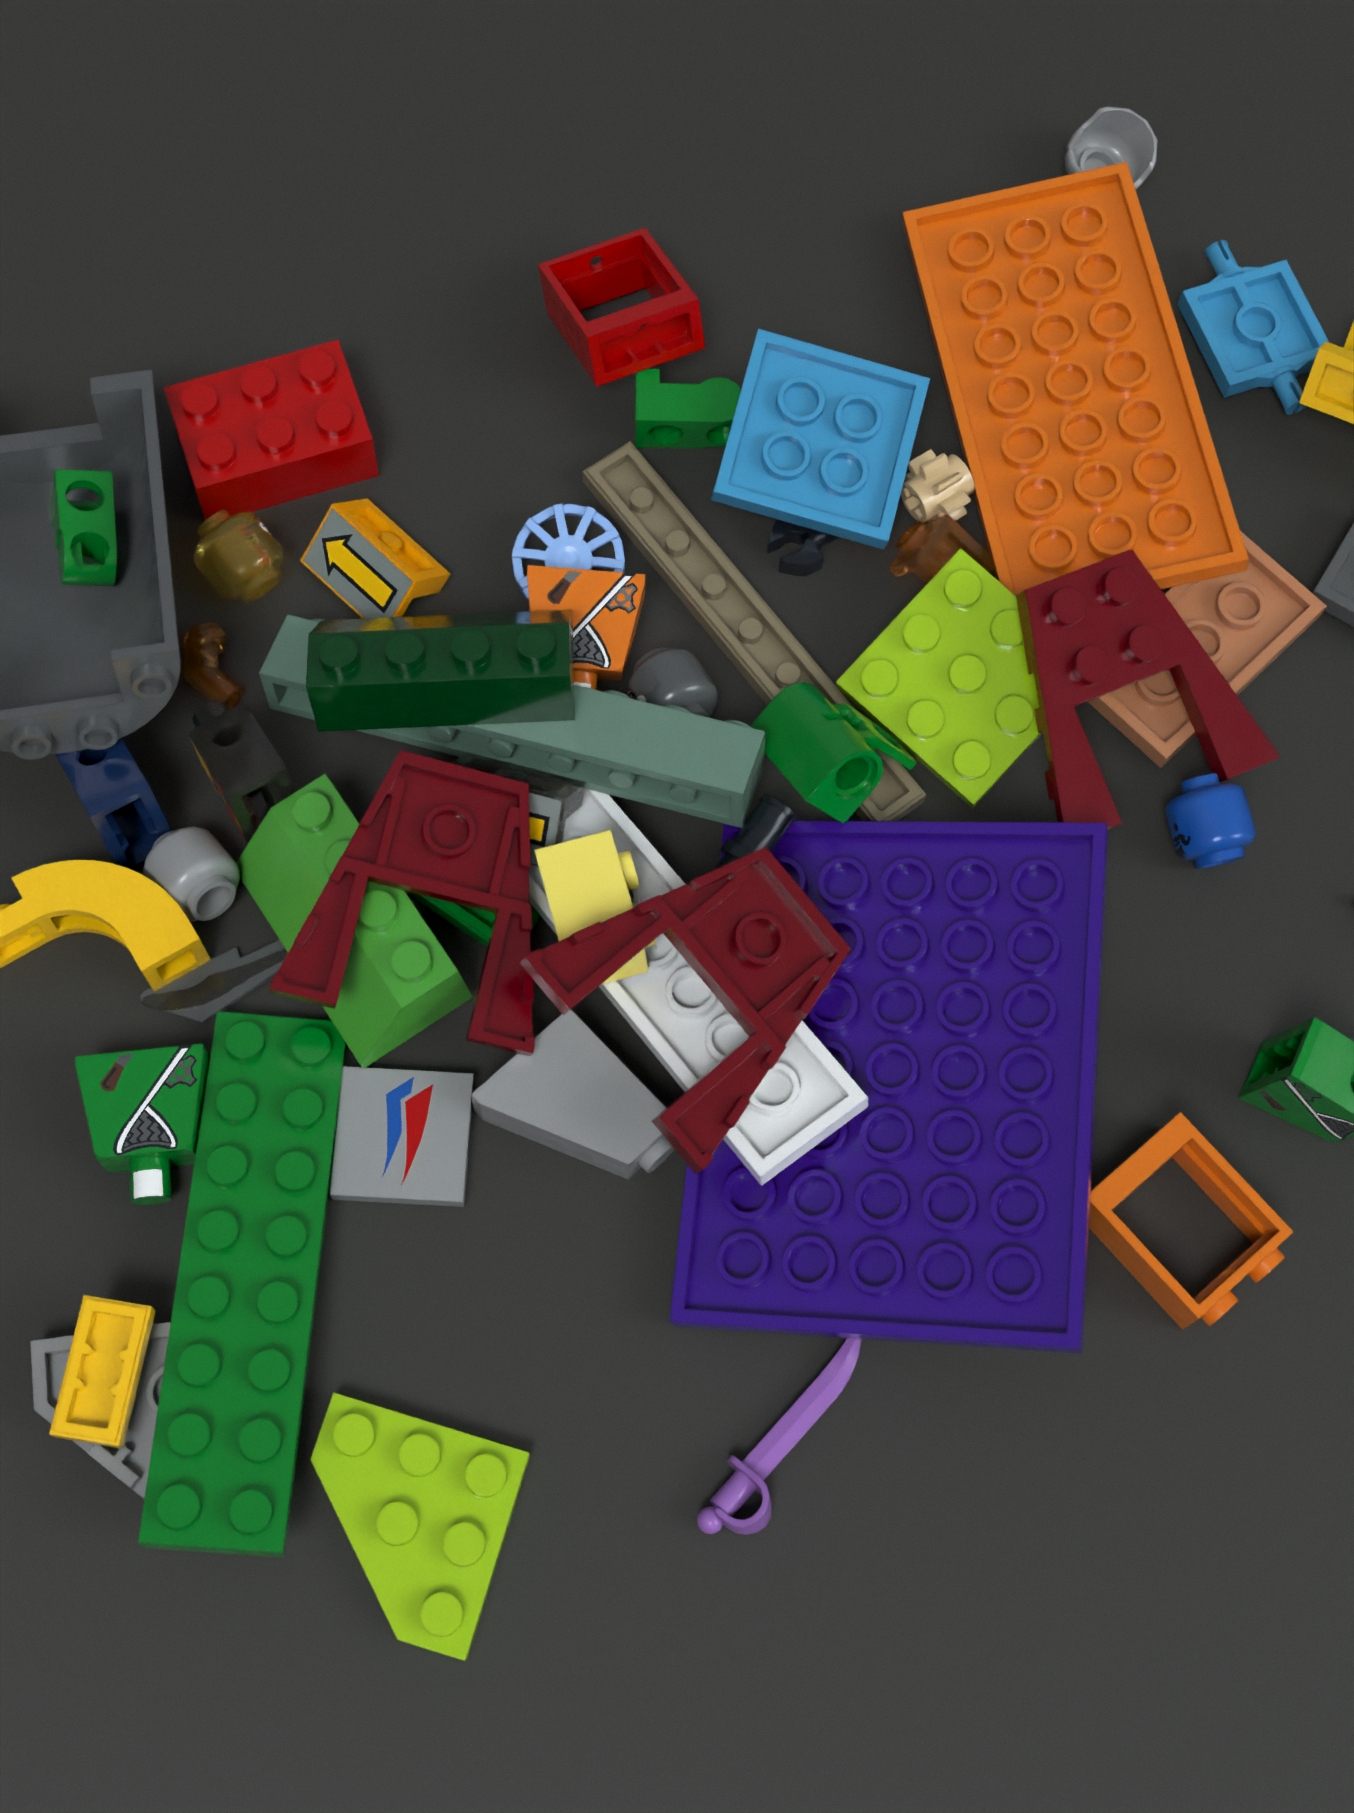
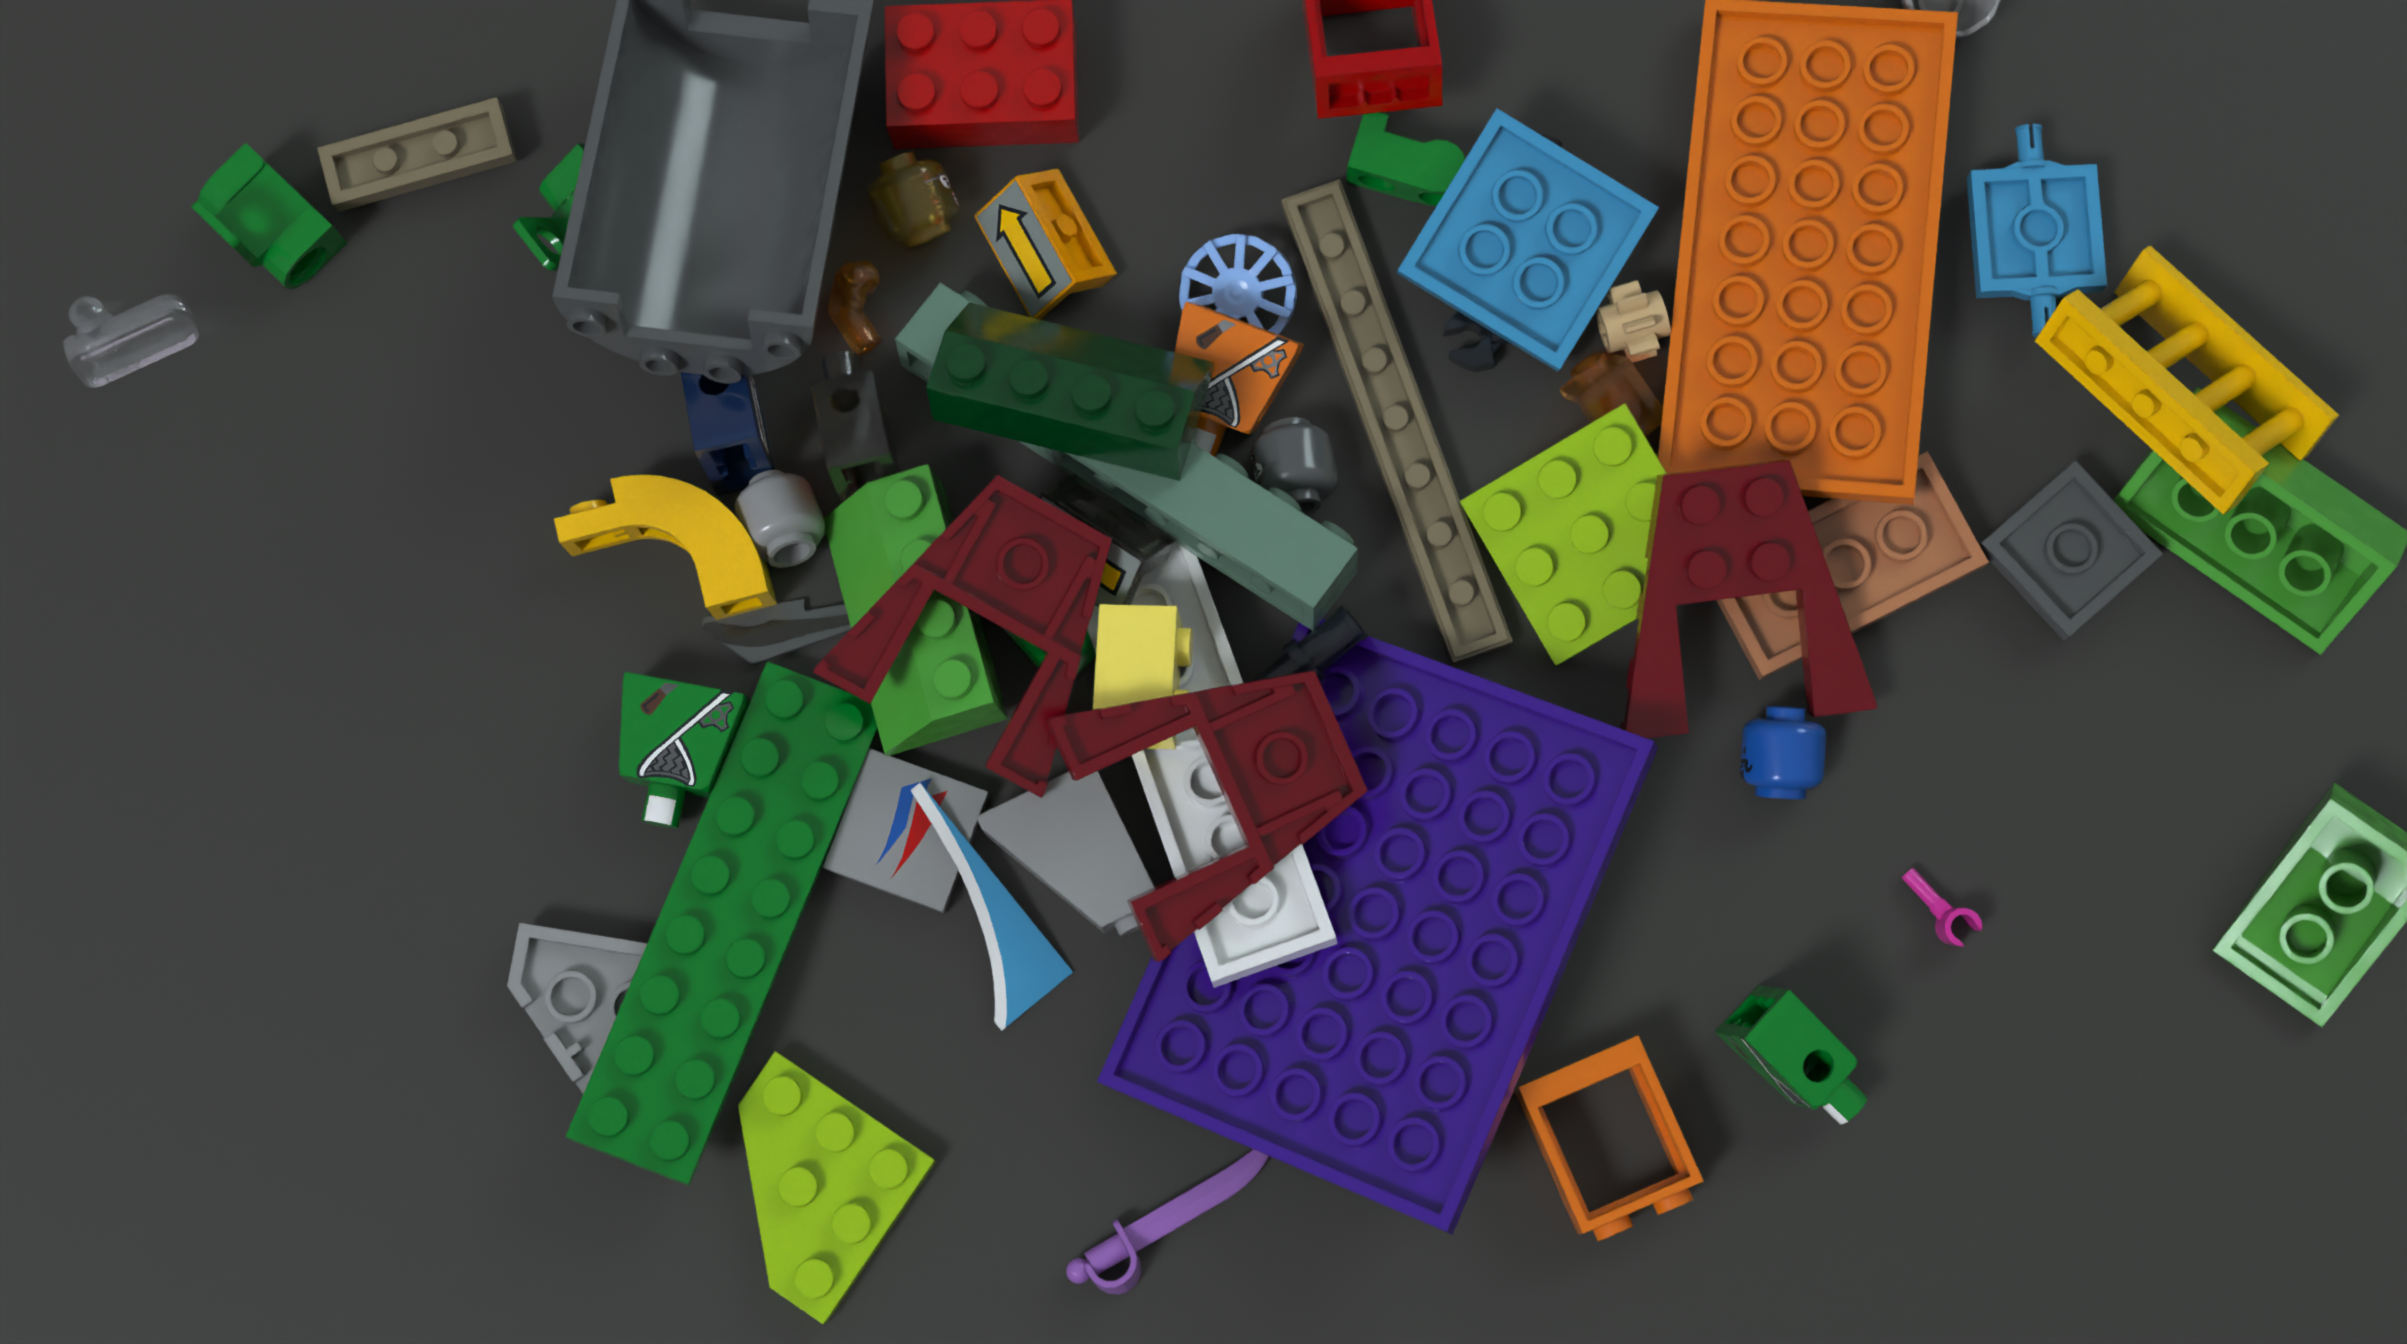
camera: 30 degrees right, 10 degrees up
(84, 528) = (766, 145): green leg -> none
(102, 1372) = (575, 973): yellow plate -> none
(553, 1224) = (1020, 955): none -> dark azure sticker
(826, 749) = (1418, 573): green piece -> none

